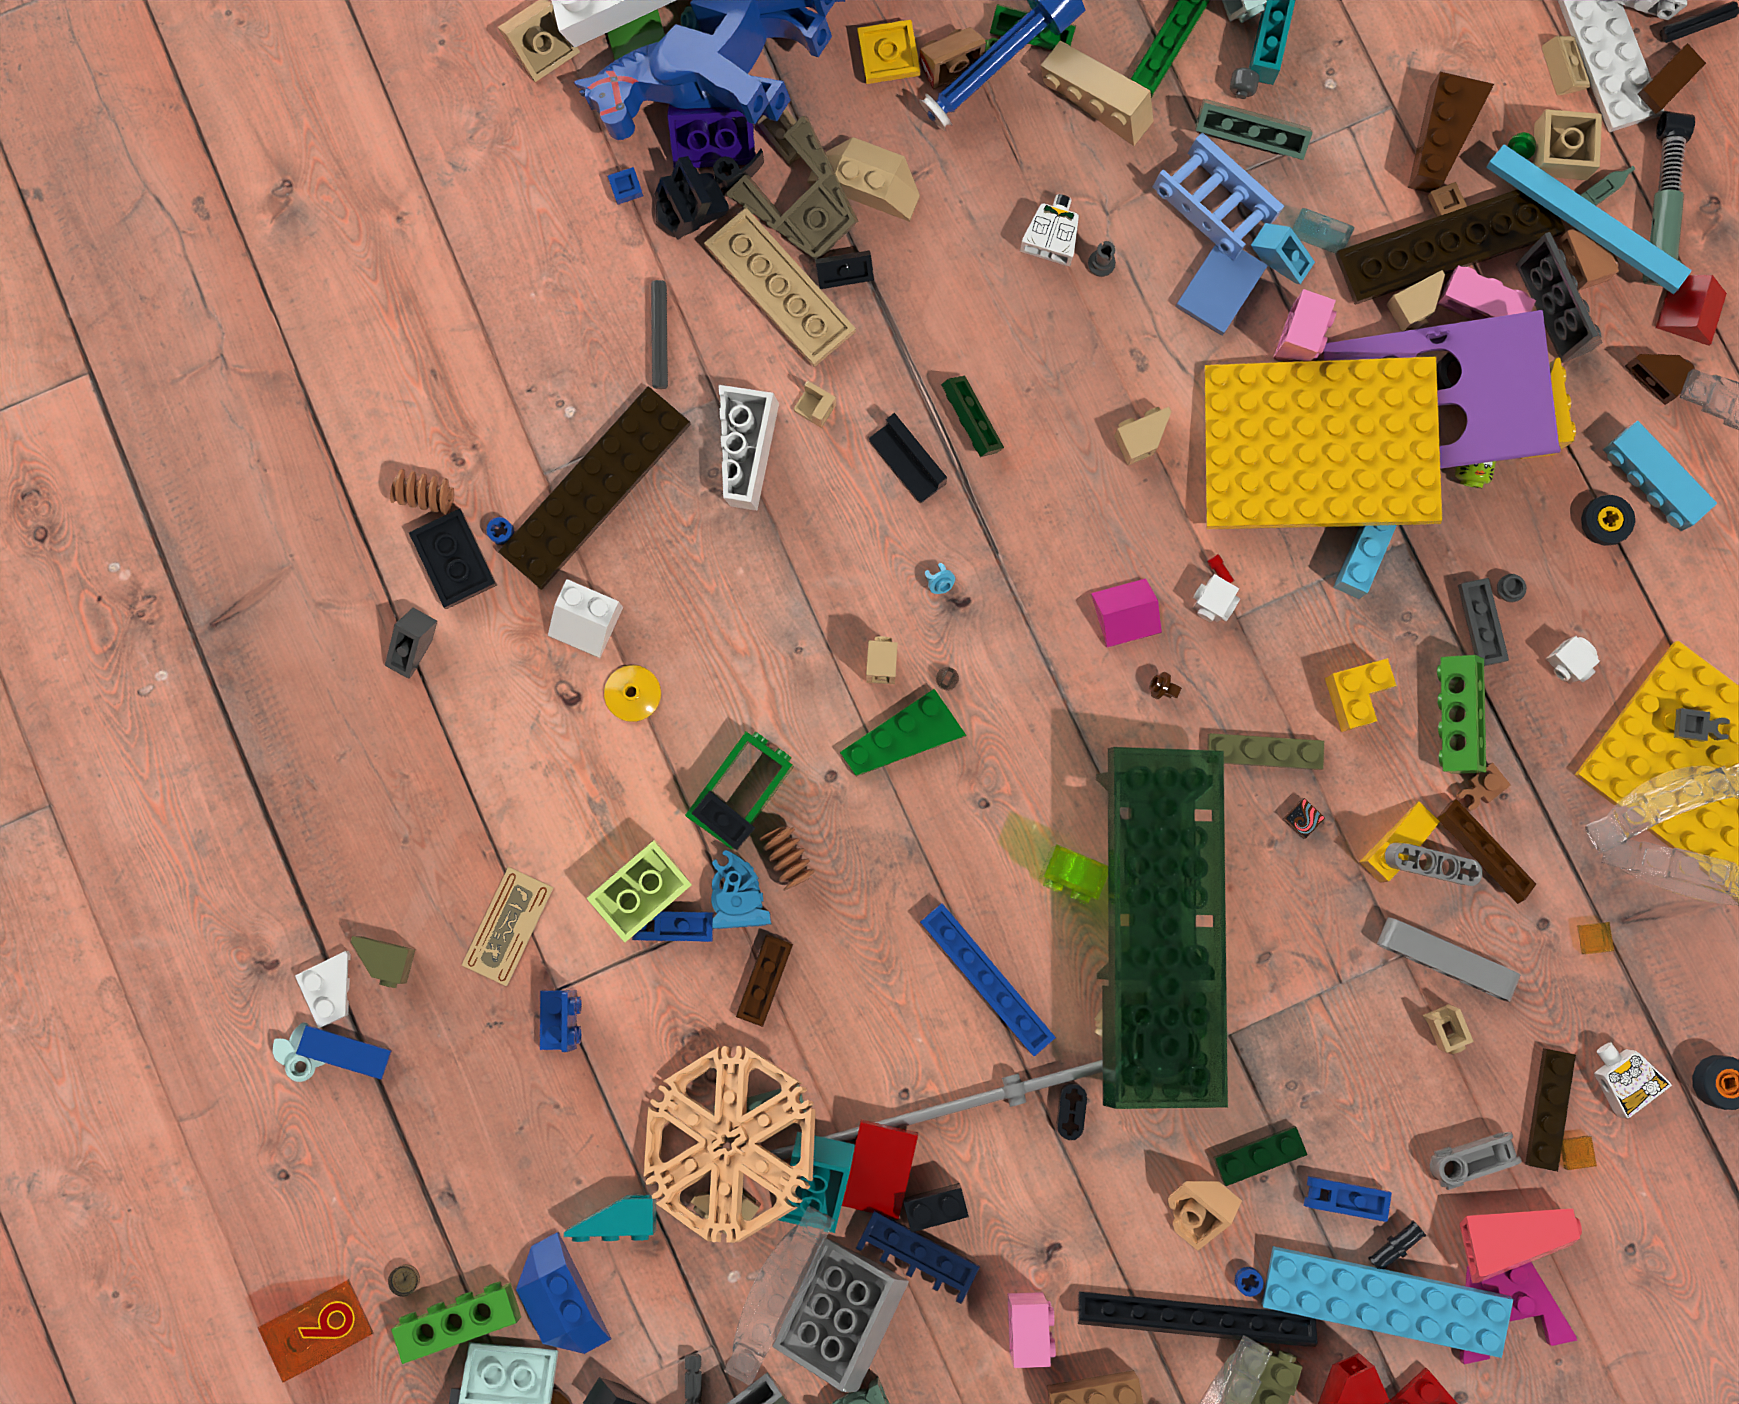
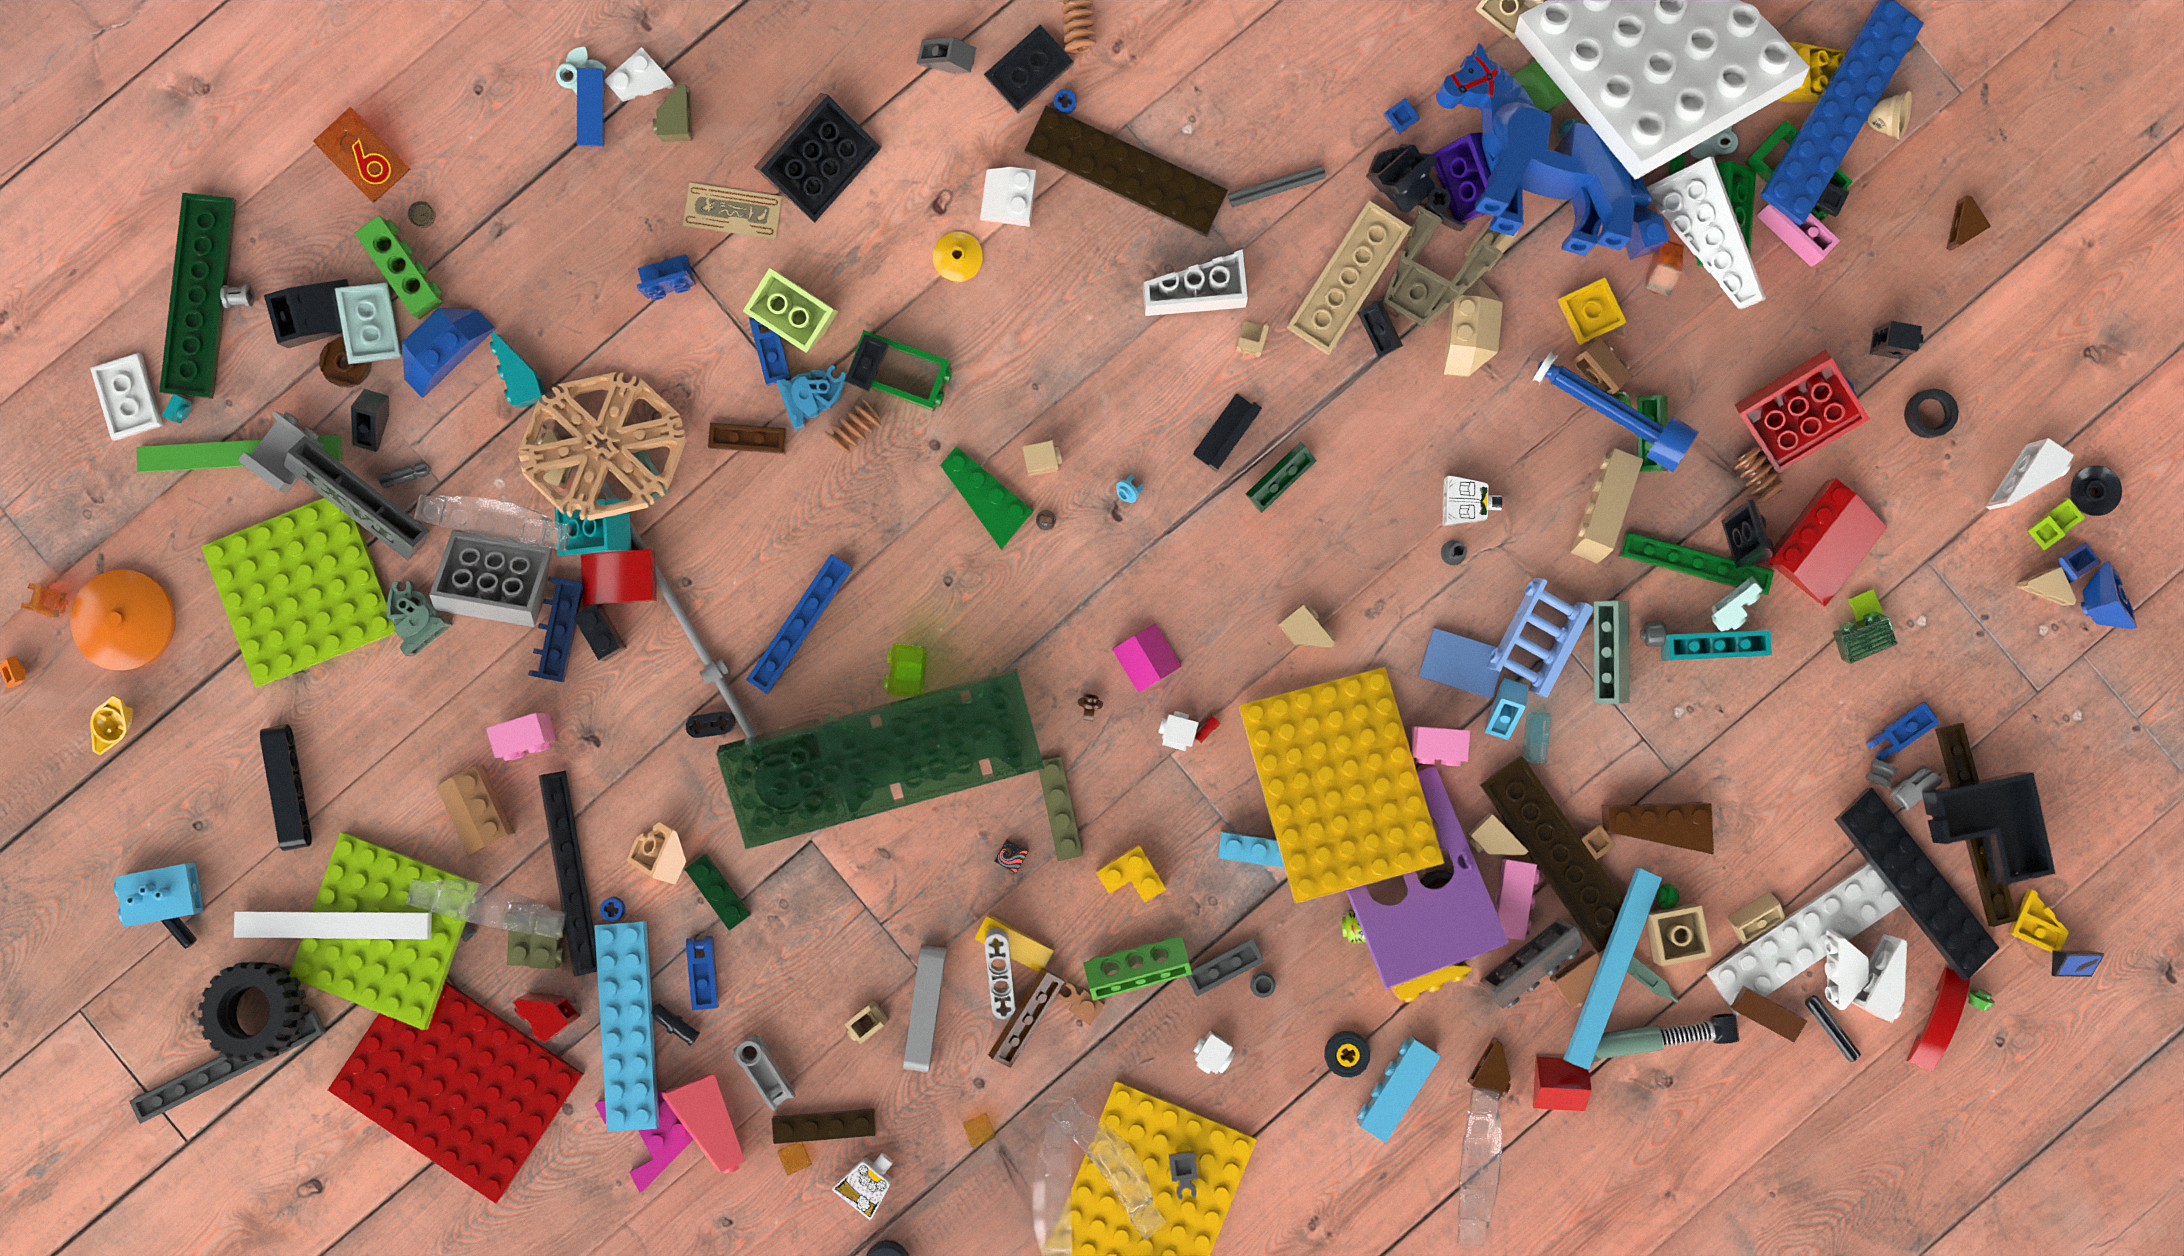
camera: 75 degrees right, 5 degrees up
(477, 814) = (817, 156): none -> black slope

